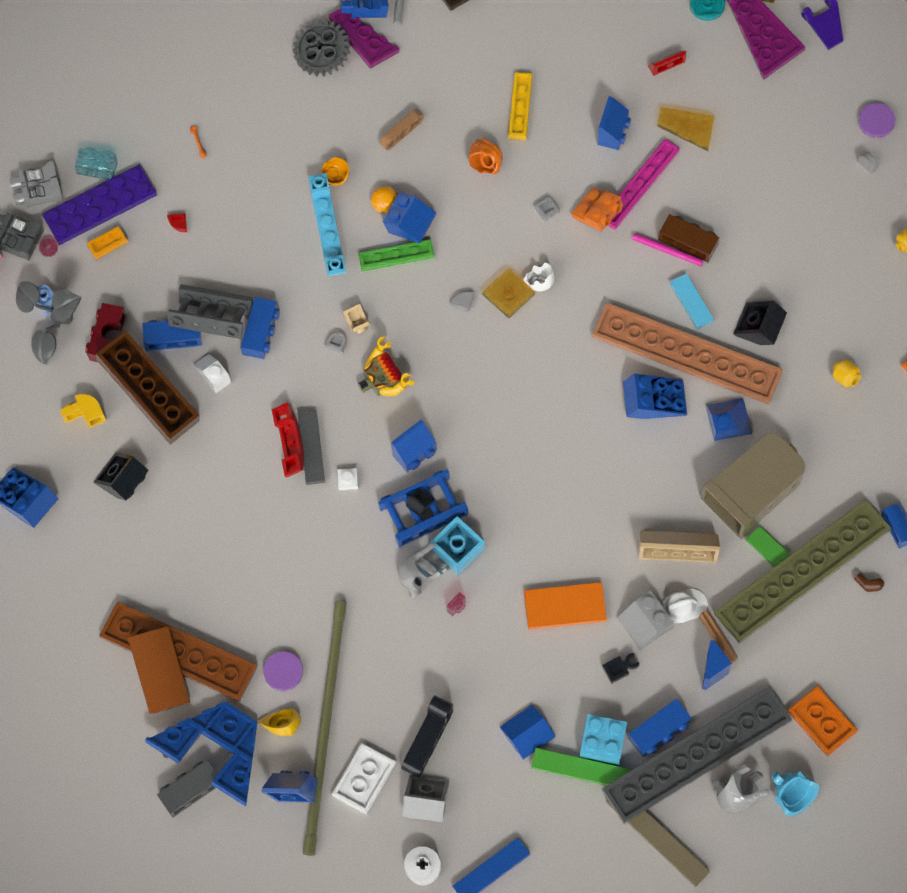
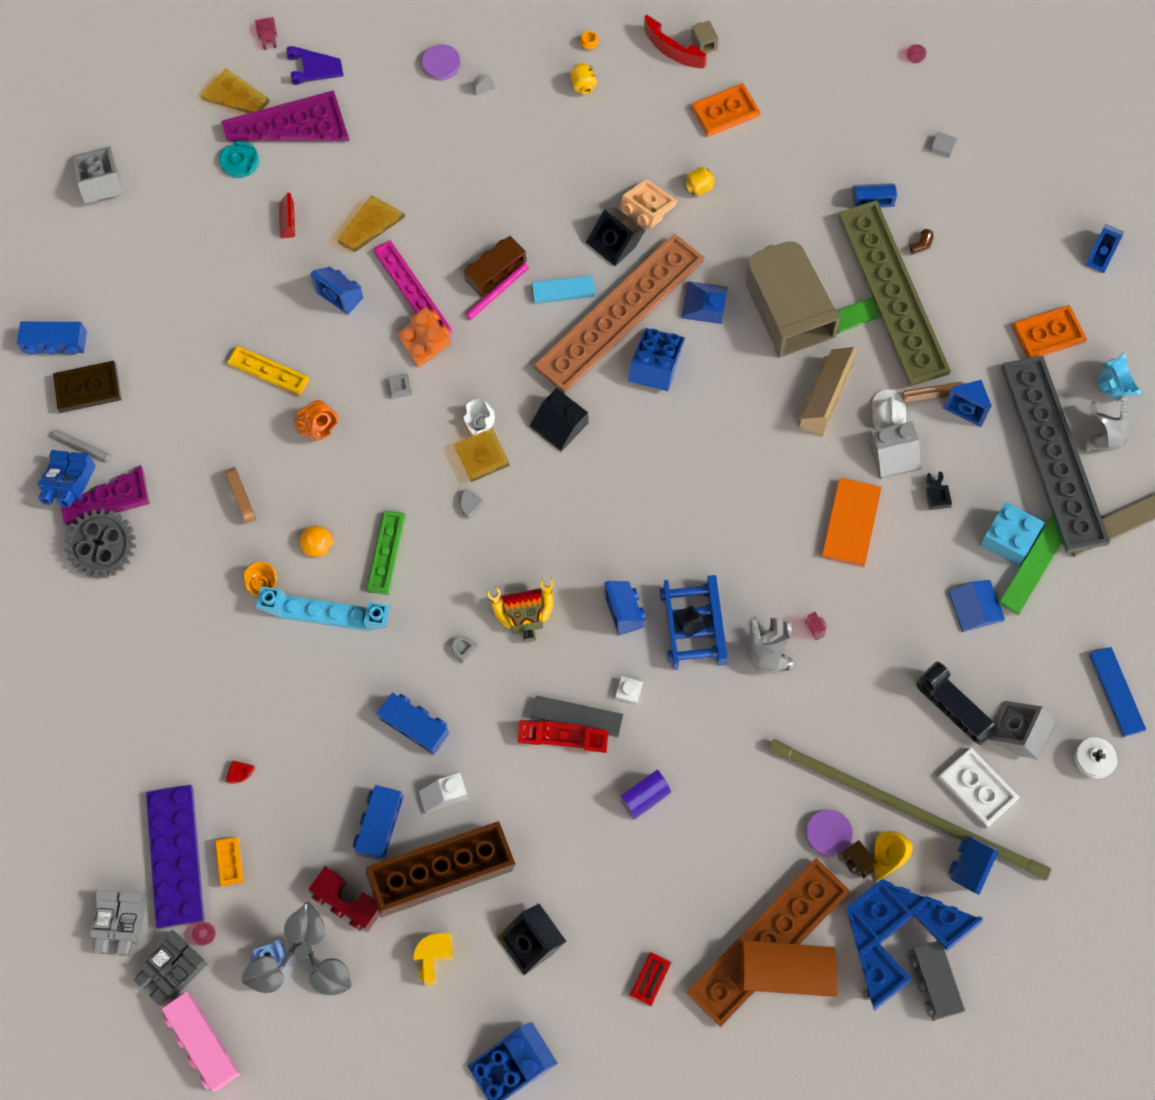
camera: 70 degrees left, 0 degrees up
(96, 163) = (122, 841): clear light blue brick -> none
(119, 574) = (642, 998): none -> red tile
(193, 130) = (131, 718): orange hinge -> none
(214, 300) = (359, 759): dark grey fence -> none
(263, 519) = (645, 794): none -> dark purple brick
(267, 699) = (858, 860): none -> dark brown brick
(356, 319) = (447, 617): tan bracket -> none
(409, 218) = (352, 521): blue slope -> none
(458, 545) = (753, 597): medium azure brick -> none
(564, 341) = (559, 420): none -> black slope
(660, 728) = (1015, 476): blue brick -> none
(803, 337) = (647, 203): none -> light nougat plate

